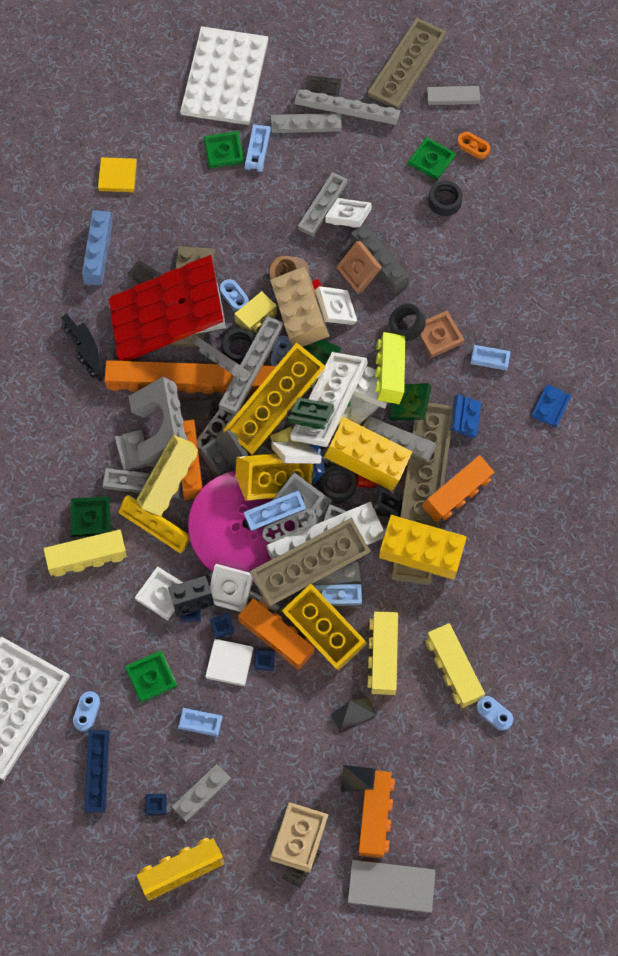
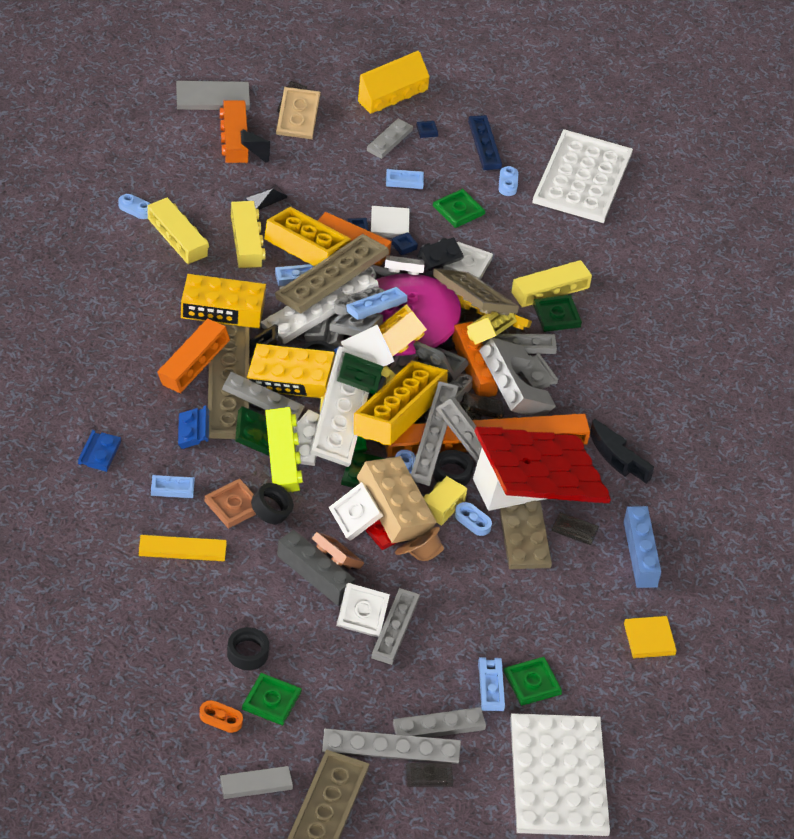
camera: 165 degrees right, 20 degrees down
(174, 511) = (476, 292): none -> dark tan plate
(487, 299) = (182, 548): none -> yellow tile

